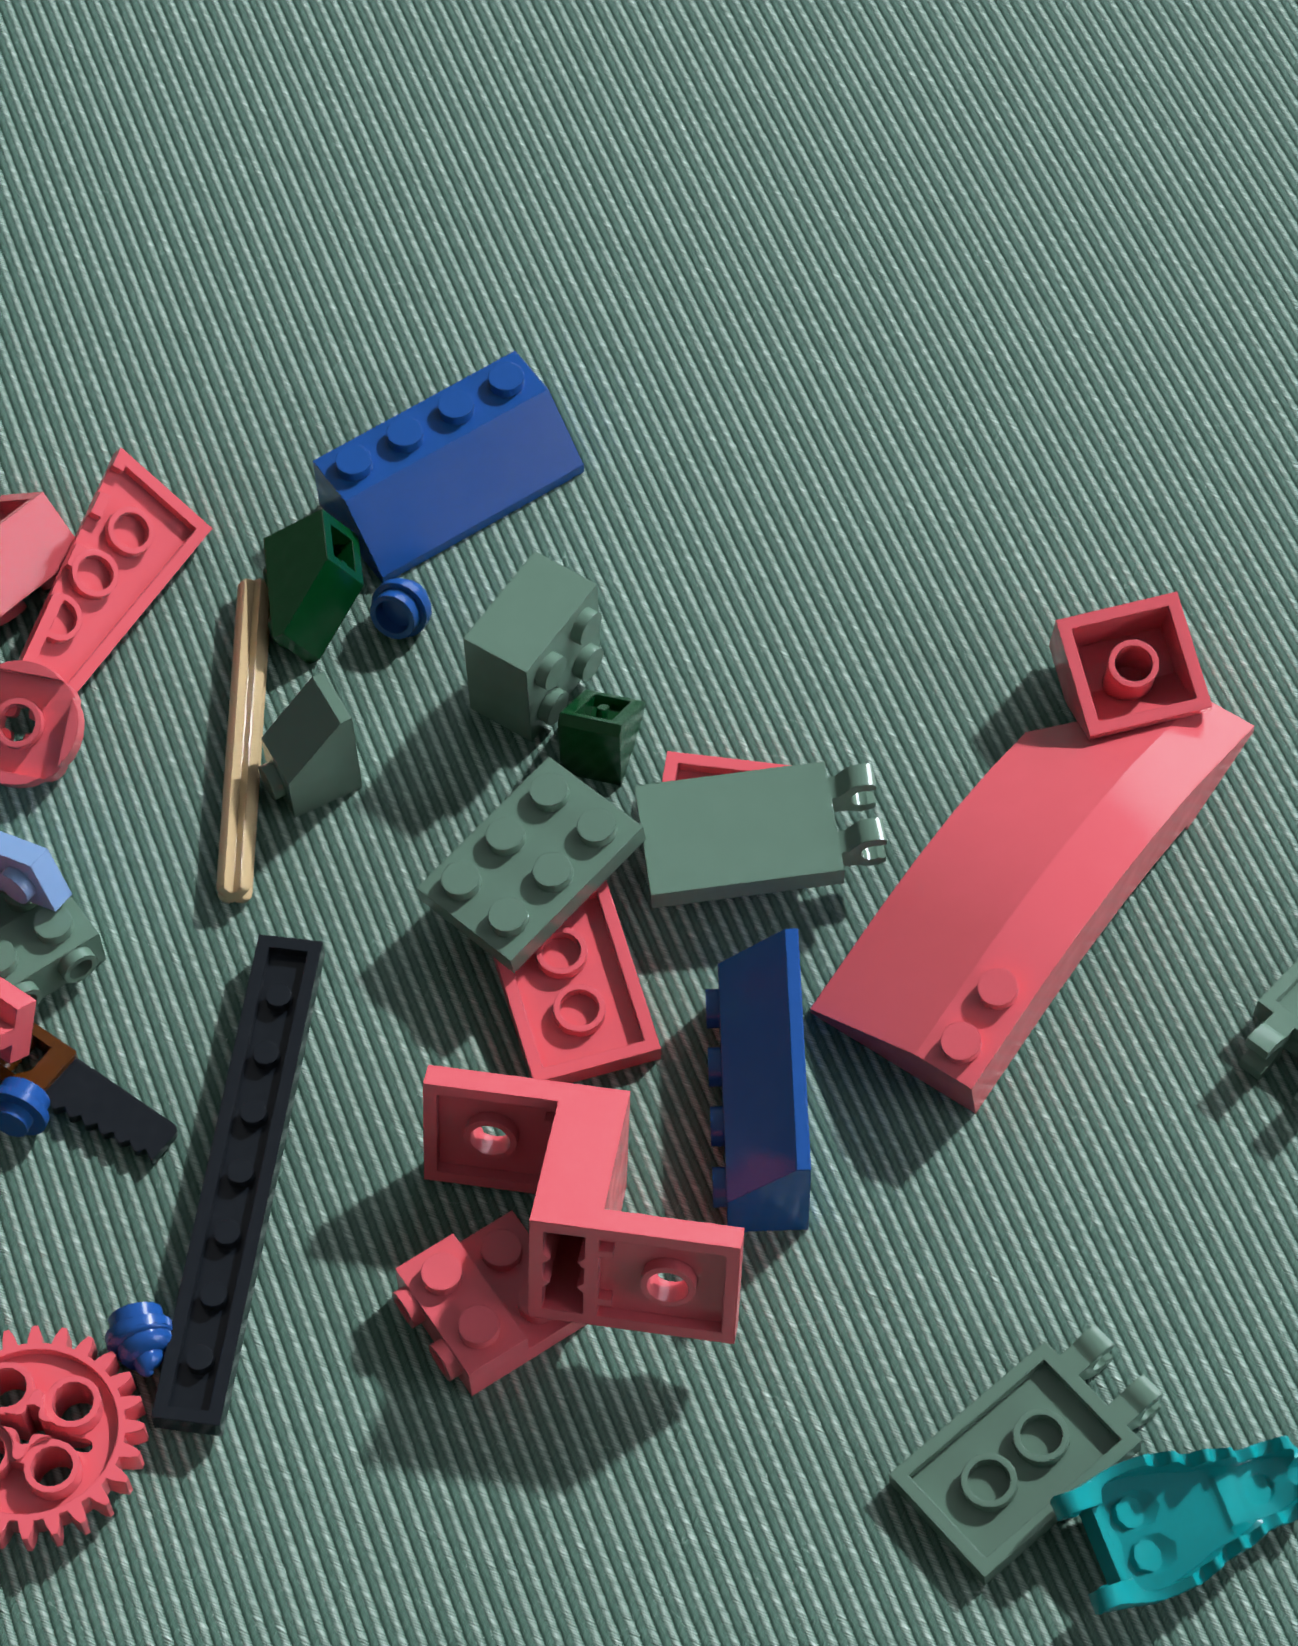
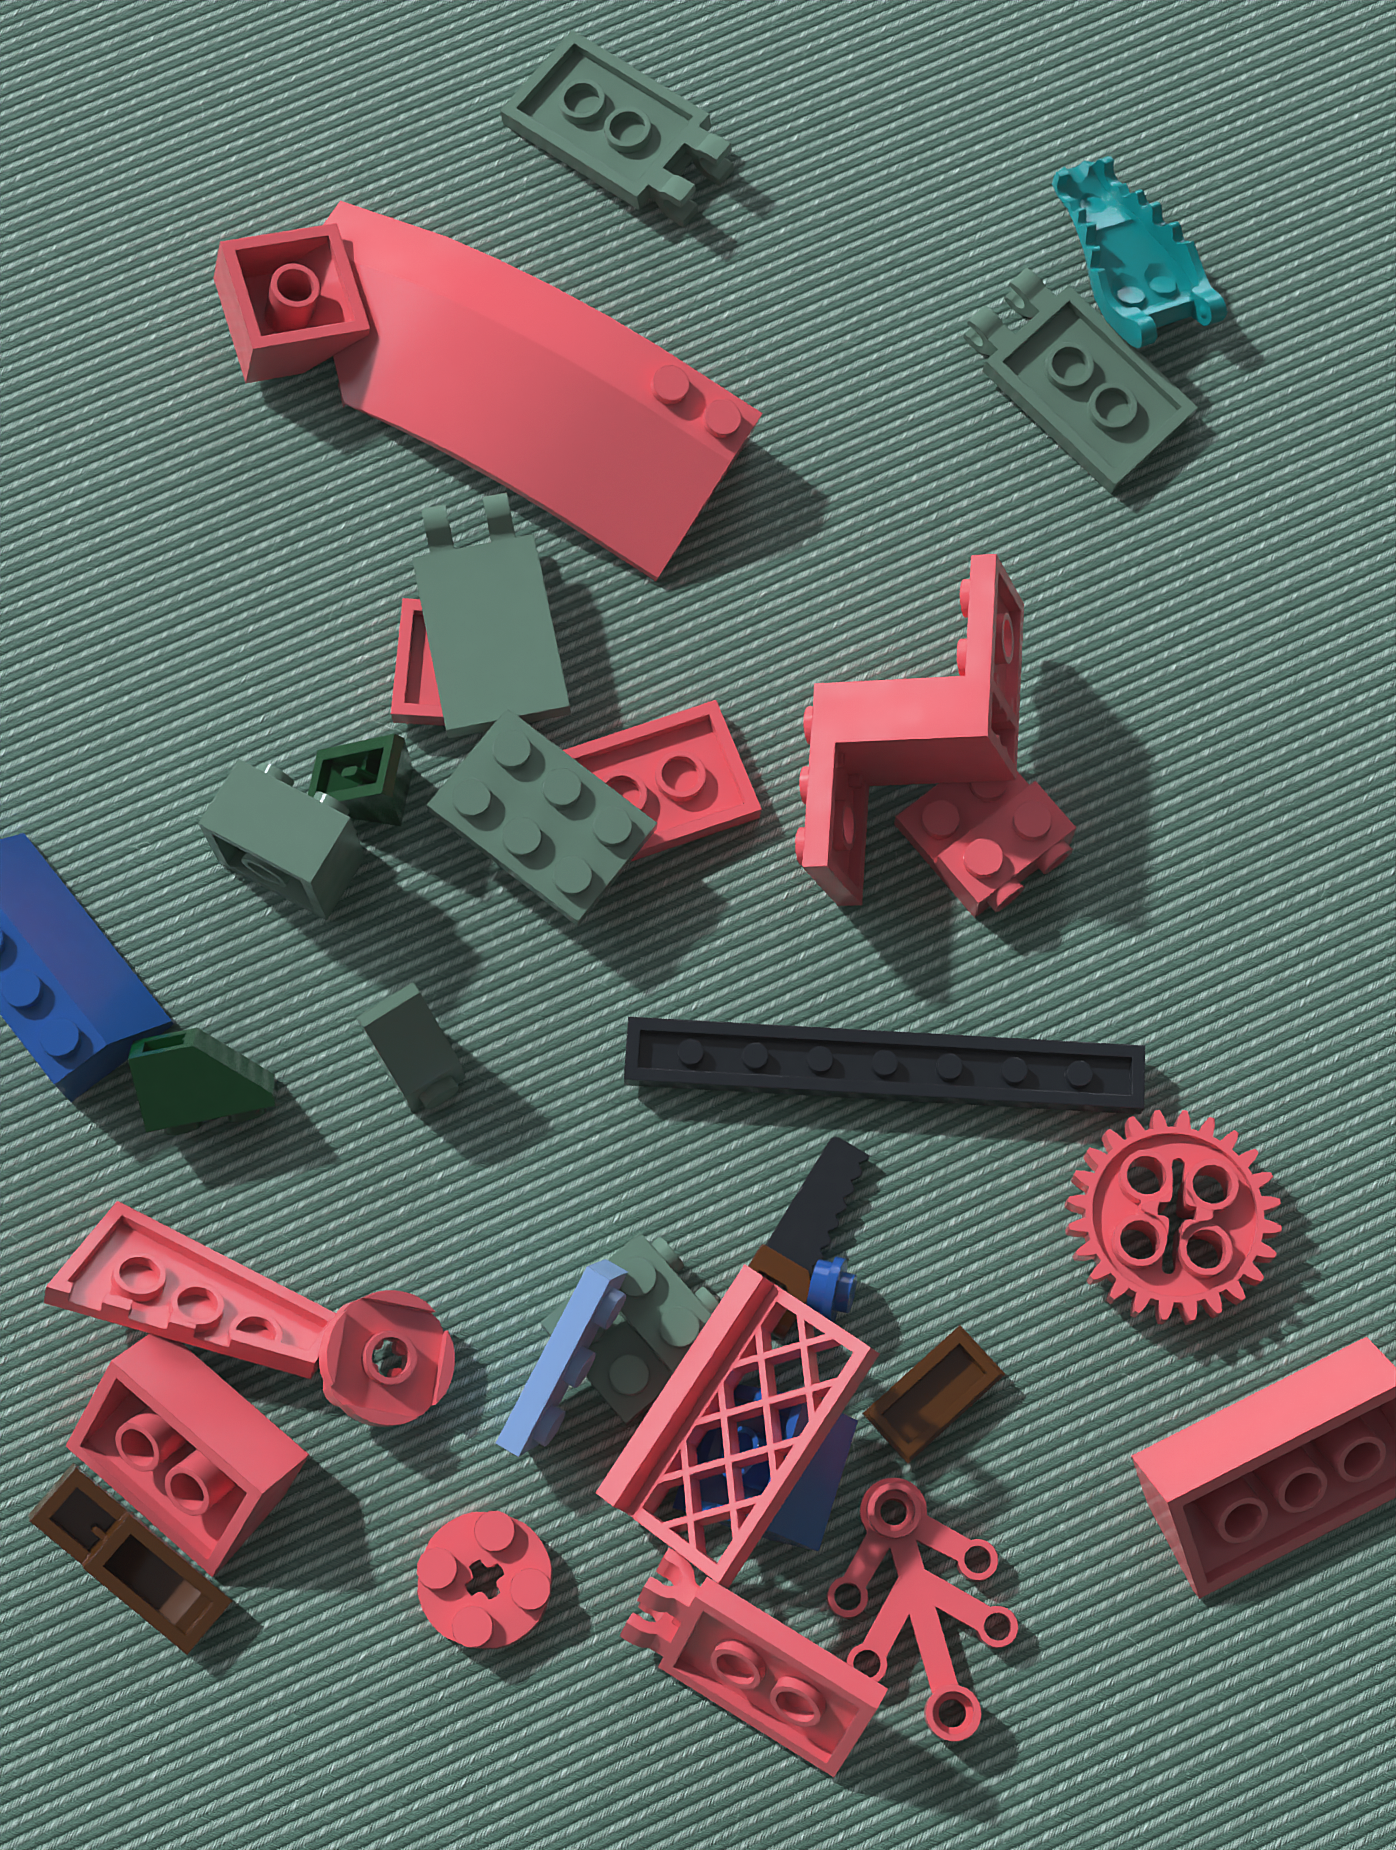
camera: 95 degrees left, 15 degrees up
(139, 1336) = (1064, 1132): blue plate -> none
(244, 743) = (378, 1133): tan axle -> none
(400, 608) = (217, 992): blue plate -> none
(762, 1087) = (762, 593): blue slope -> none

